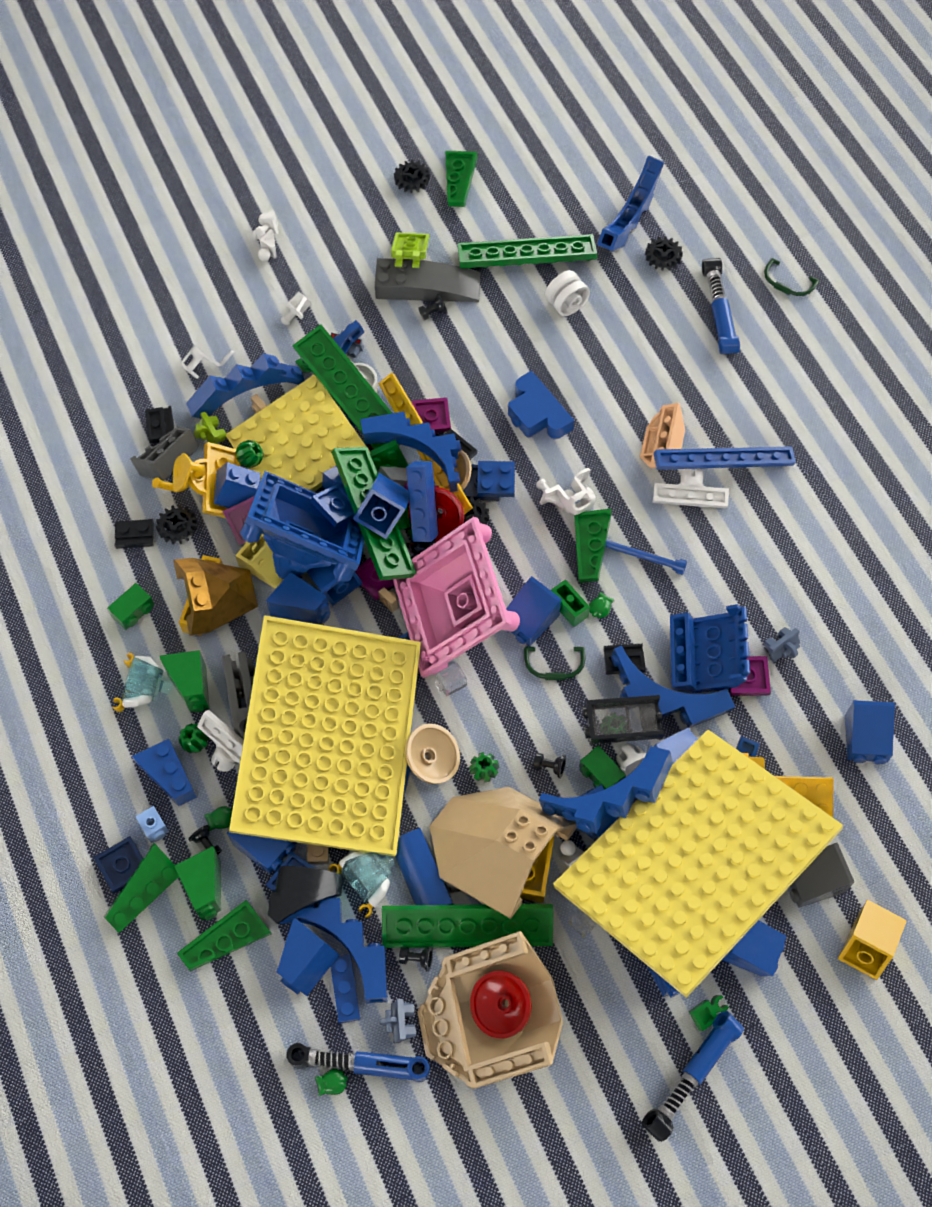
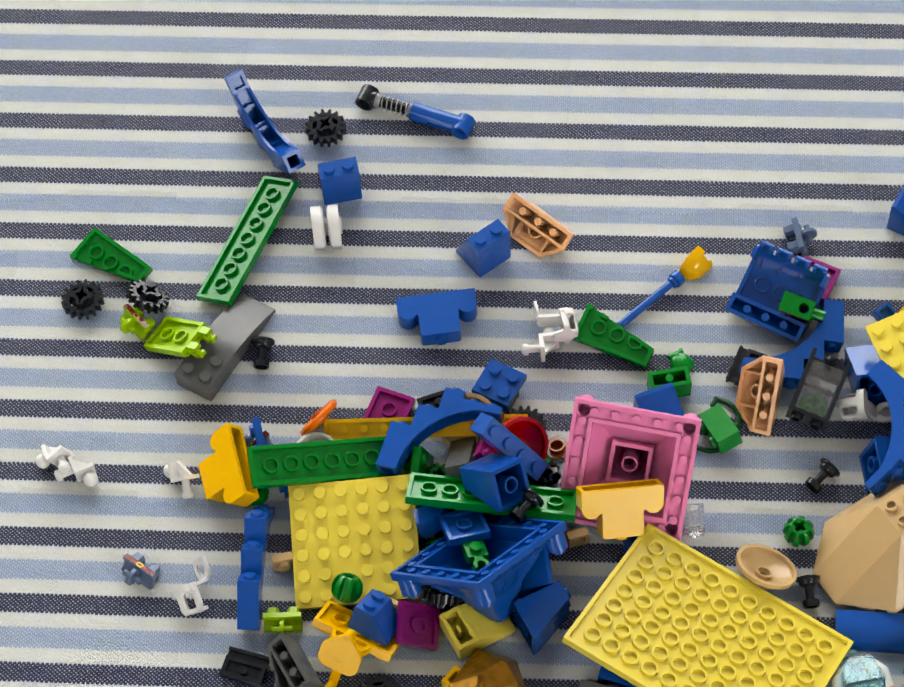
camera: 60 degrees left, 5 degrees down
(198, 318) = (139, 573): none -> sand blue hips
(313, 522) = (475, 553): none -> green plate
(331, 318) = (226, 471): none -> yellow brick
(375, 535) = (531, 499): none -> black piece
(391, 368) = (319, 417): none -> orange plate
(413, 607) = (620, 506): none -> yellow brick
(417, 212) = (133, 322): none -> lime hips
(434, 211) = (147, 296): none -> black gear
(437, 795) = (808, 583): none -> black piece
(548, 661) = (720, 429): none -> green brick
(597, 678) = (760, 393): none -> light nougat wedge
(600, 769) = (850, 436): green brick -> none
(617, 282) = (339, 180): none -> blue slope
(617, 411) = (486, 248): none -> blue slope
(691, 492) = (603, 233): white plate -> none
(700, 669) = (792, 304): none -> green torso
(703, 575) = (695, 264): none -> yellow brick
(724, 457) = (590, 187): blue plate -> none
(783, 288) = (423, 55): dark green piece -> none

